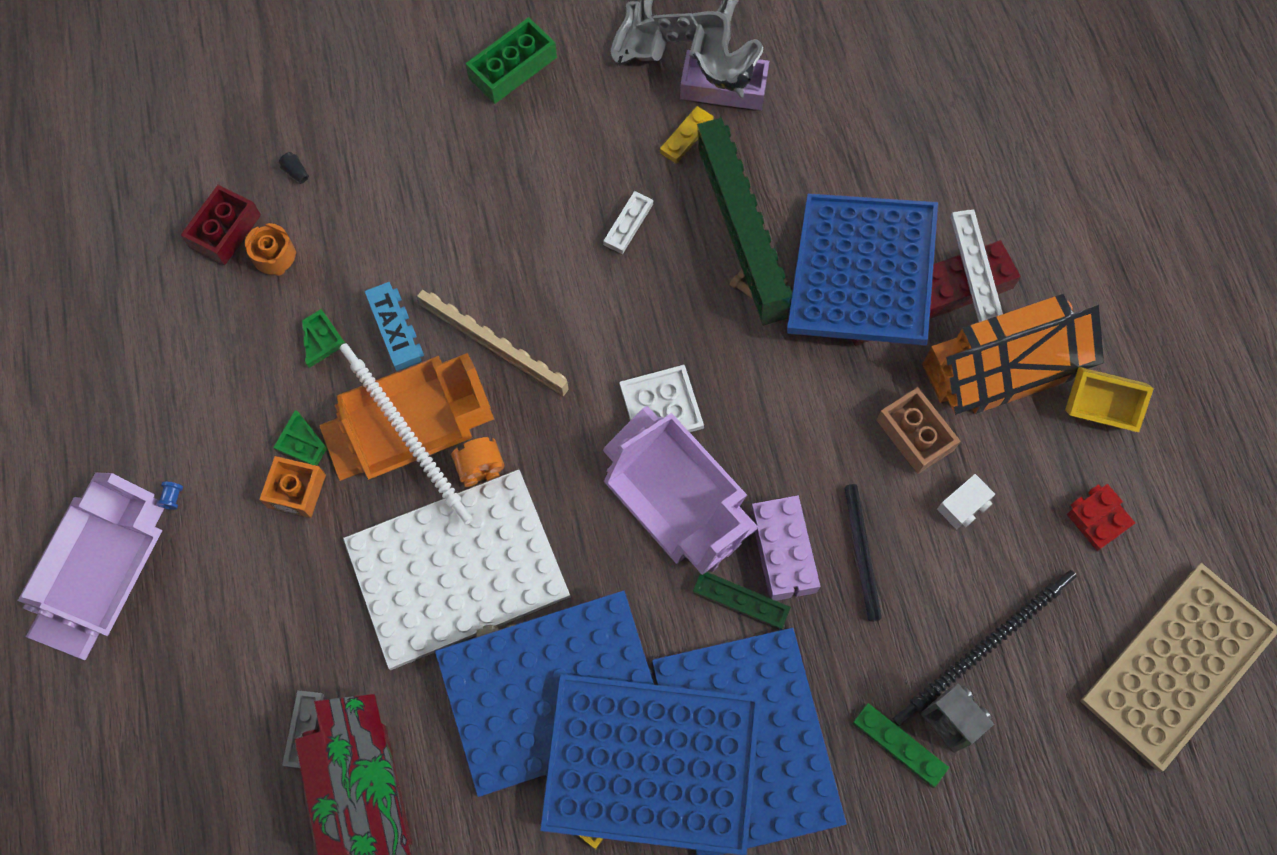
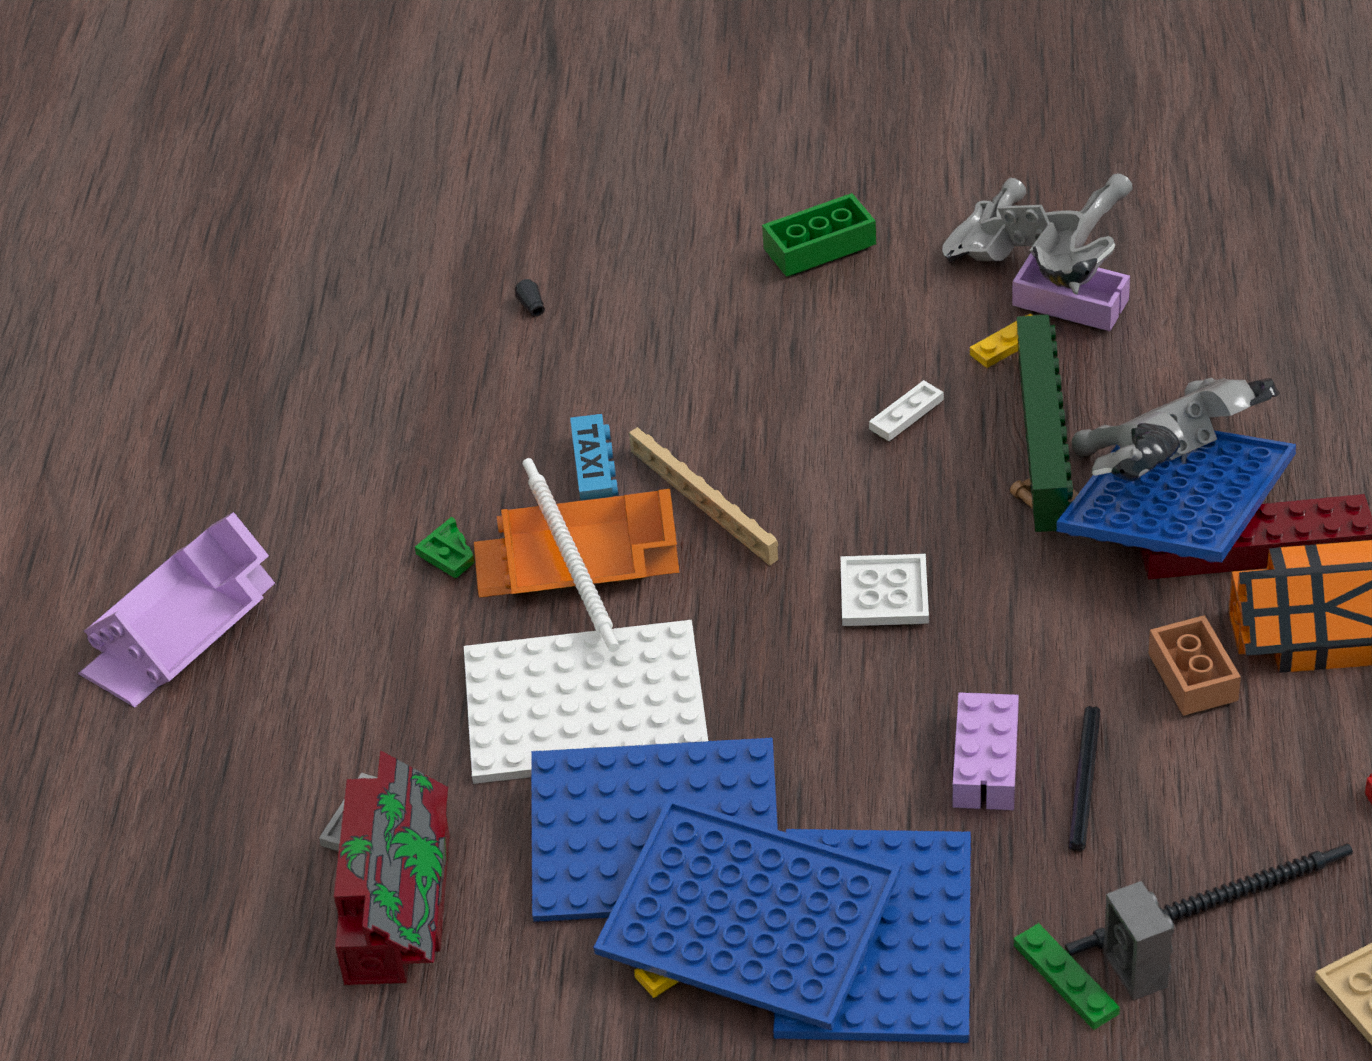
camera: 20 degrees right, 25 degrees down
(169, 495) = (282, 571): blue bush -> none
(221, 224) = (429, 333): dark red brick -> none
(270, 249) = (477, 364): orange brick -> none
(292, 487) = (423, 584): orange brick -> none
(320, 338) = (503, 458): green wing -> none
(478, 461) = (644, 595): orange brick -> none
(677, 490) = (871, 664): lavender panel -> none
(741, 600) = (916, 793): dark green plate -> none
(843, 222) = (1171, 427): none -> light grey animal
(966, 501) = (1233, 749): white brick -> none
(976, 265) = (1318, 496): white plate -> none

